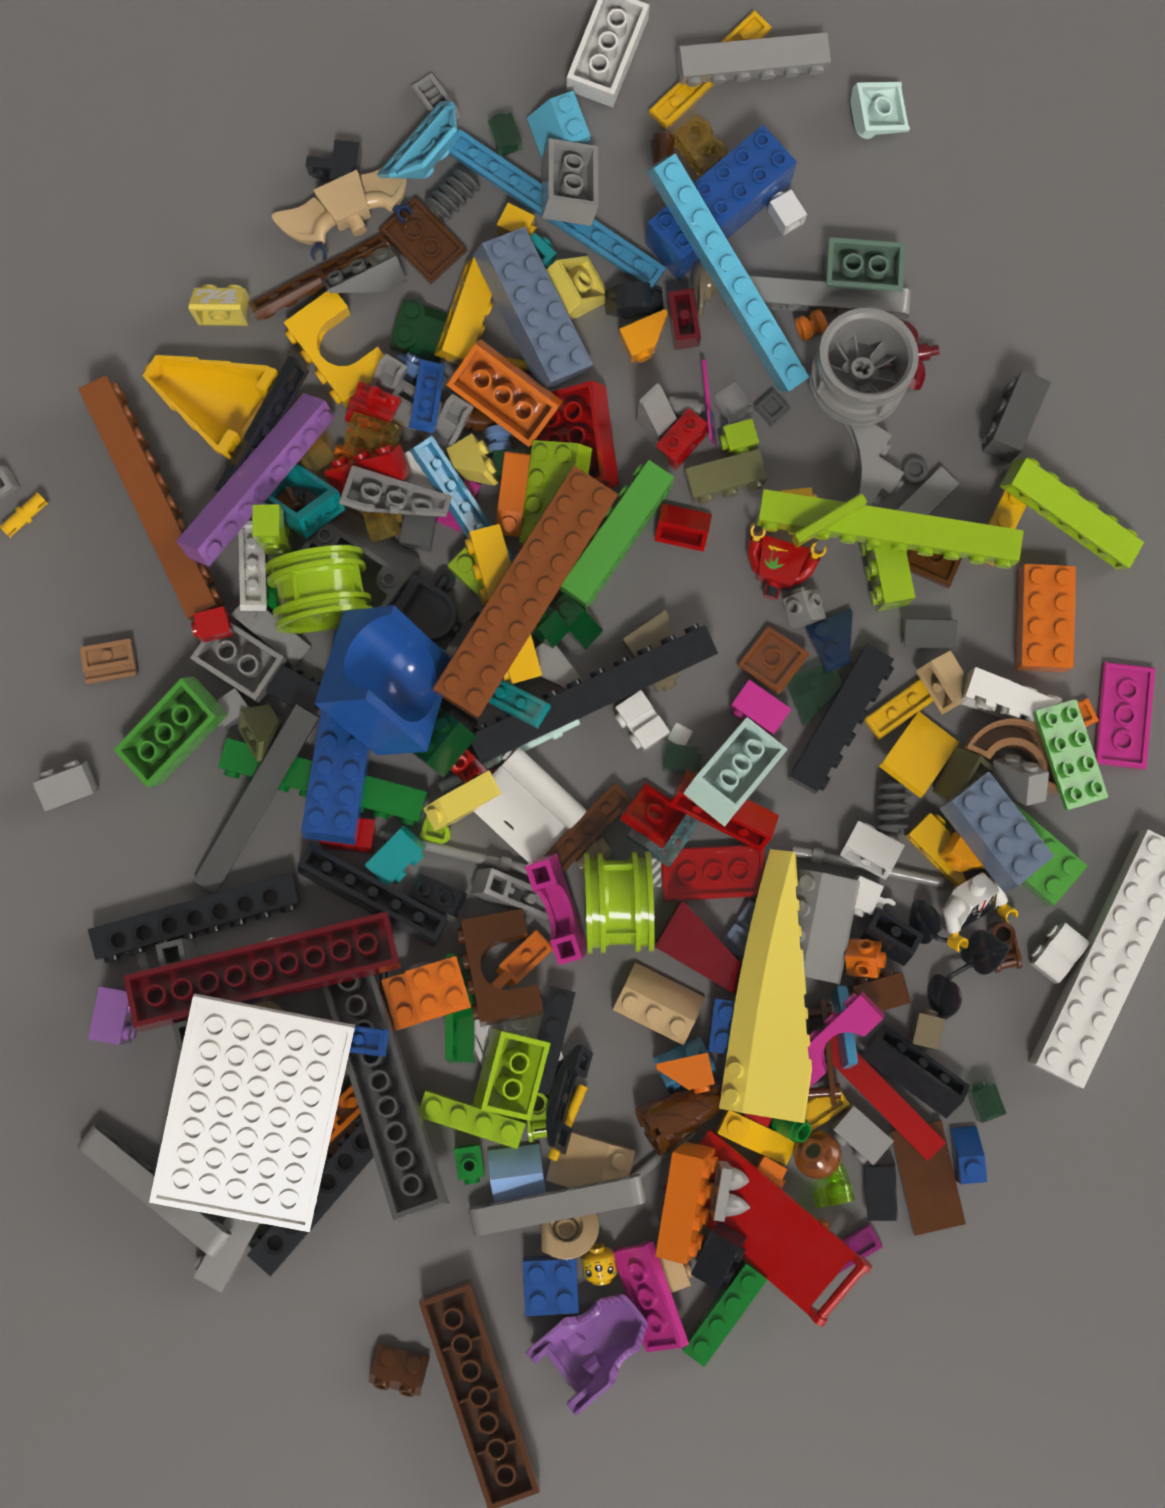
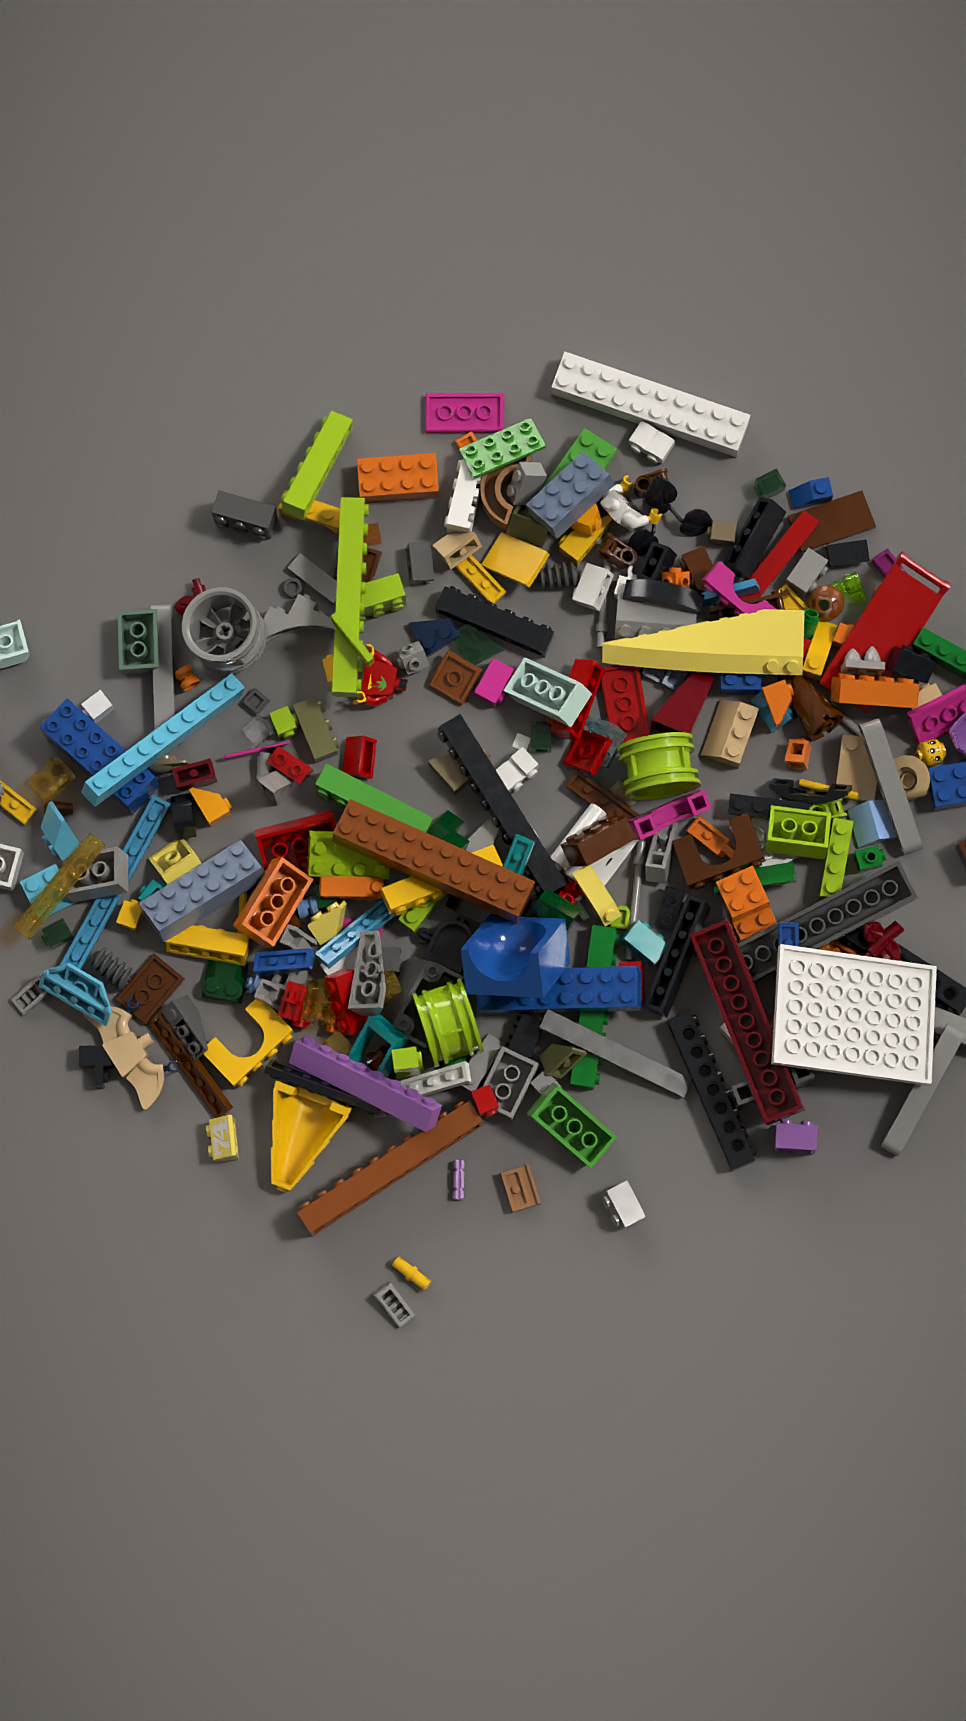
camera: 90 degrees left, 5 degrees down
(131, 586) = (458, 1179): none -> lavender axle
(349, 1165) = (882, 940): none -> dark red plant
(529, 810) = (597, 840): none -> reddish brown brick
(559, 134) = (59, 886): none -> clear yellow tile
(627, 145) = (57, 833): none -> medium azure slope
(627, 1084) = (796, 747): none -> orange brick
(849, 941) = (665, 593): none -> black slope
(917, 882) = (614, 549): none -> reddish brown piece
(974, 576) = (373, 535): none -> clear orange tile

